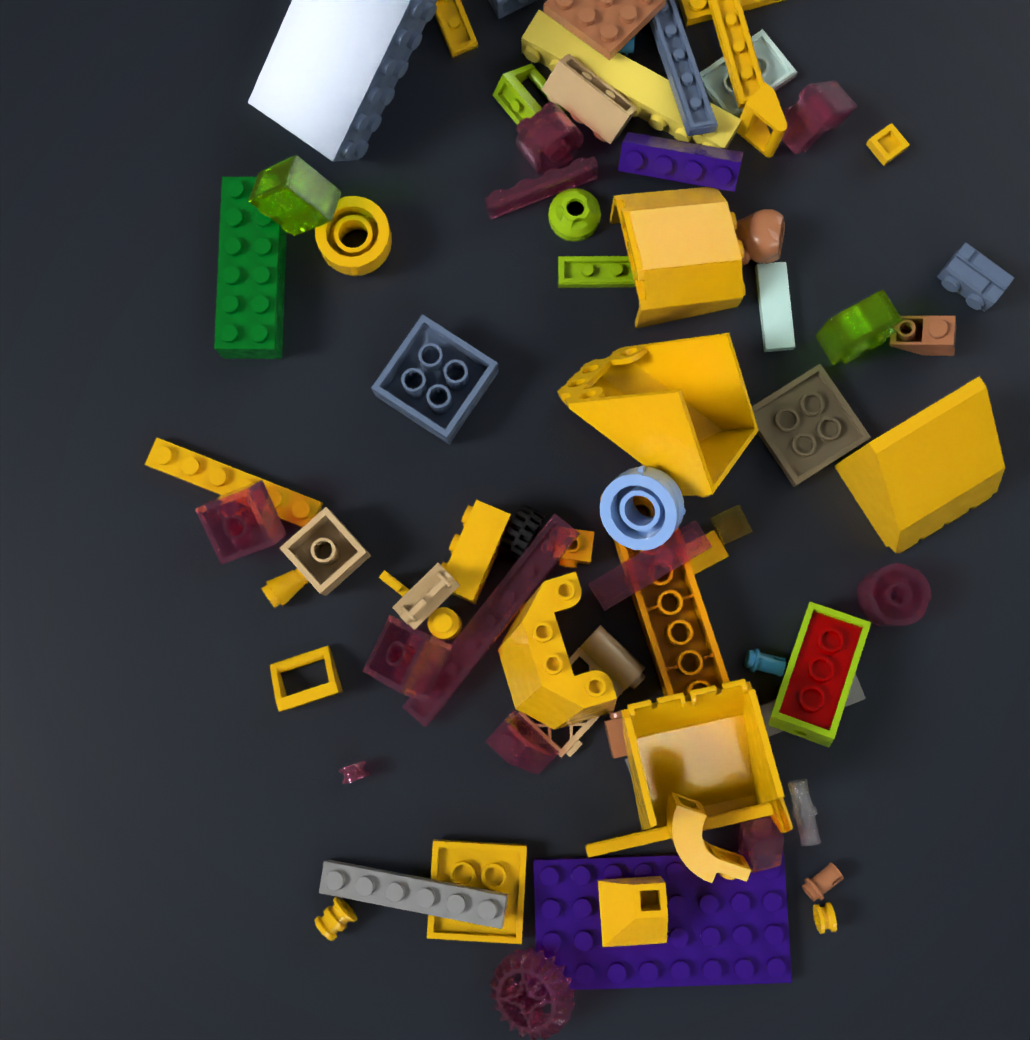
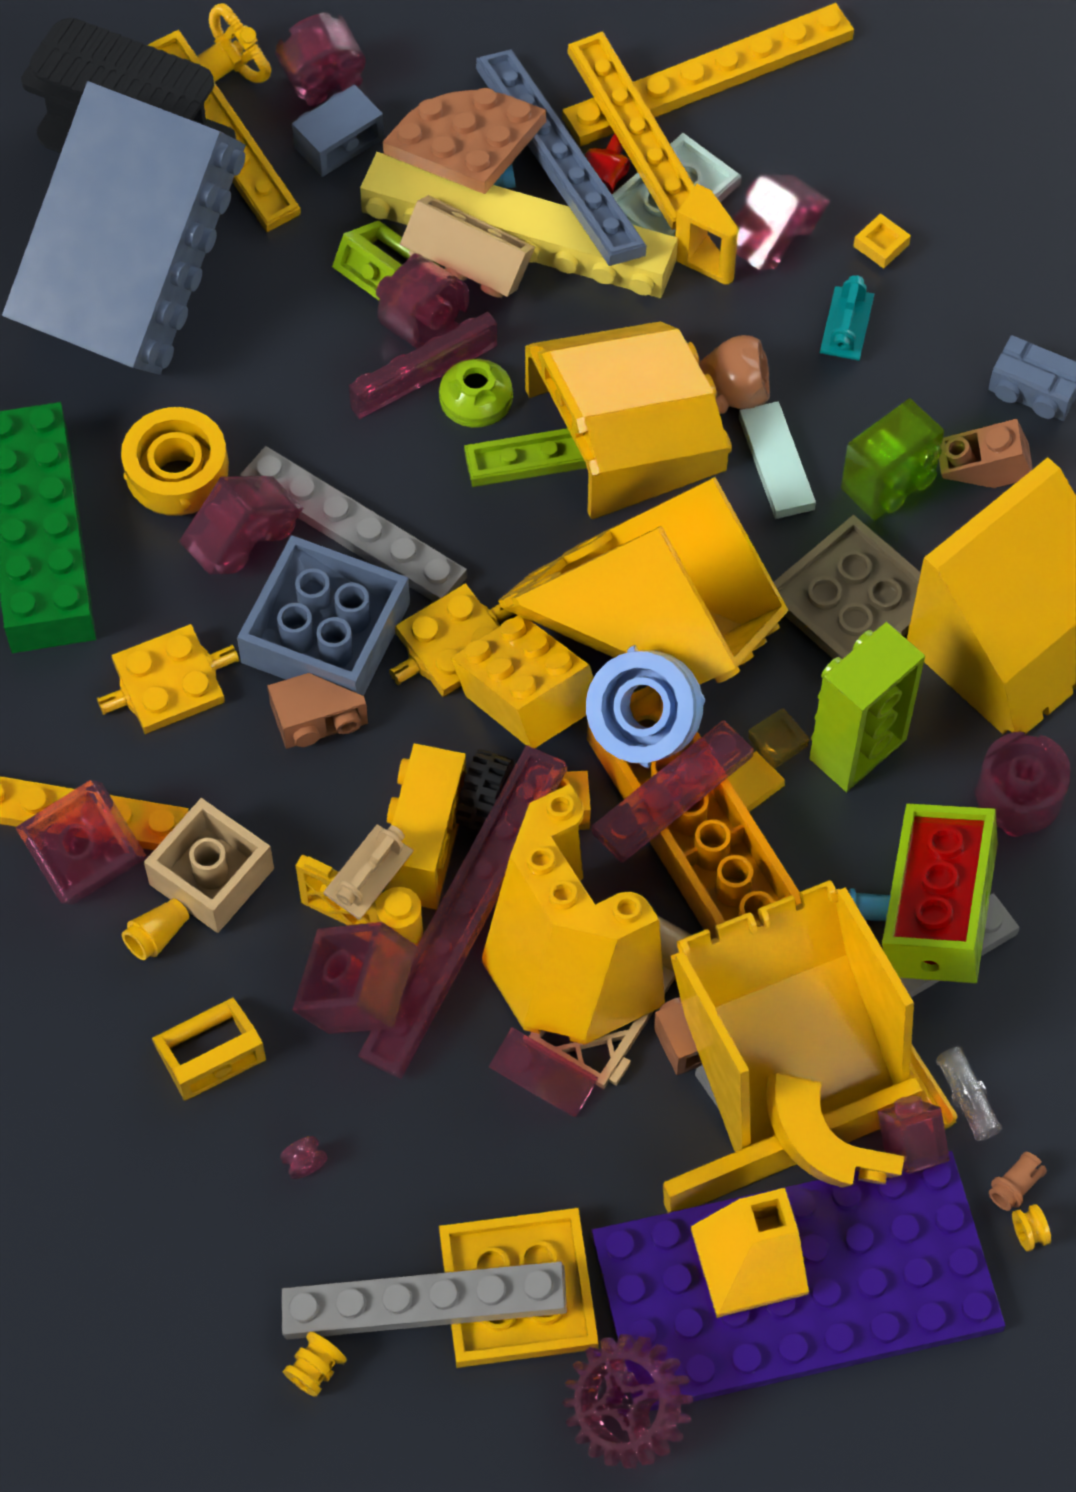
camera: 15 degrees left, 20 degrees down
(295, 196) = (89, 414): clear neon green brick -> none
(323, 400) = (168, 679): none -> yellow plate
(390, 290) = (235, 518): none -> clear pink brick
(416, 443) = (314, 709): none -> nougat slope
(470, 304) = (361, 528): none -> light grey plate
(522, 407) = (440, 633): none -> yellow plate
(565, 457) = (525, 680): none -> yellow brick
(680, 161) = (606, 300): dark purple brick -> none
(704, 45) = (609, 163): none -> red piece
(799, 529) = (865, 705): none -> lime brick
(848, 204) = (847, 319): none -> teal hinge

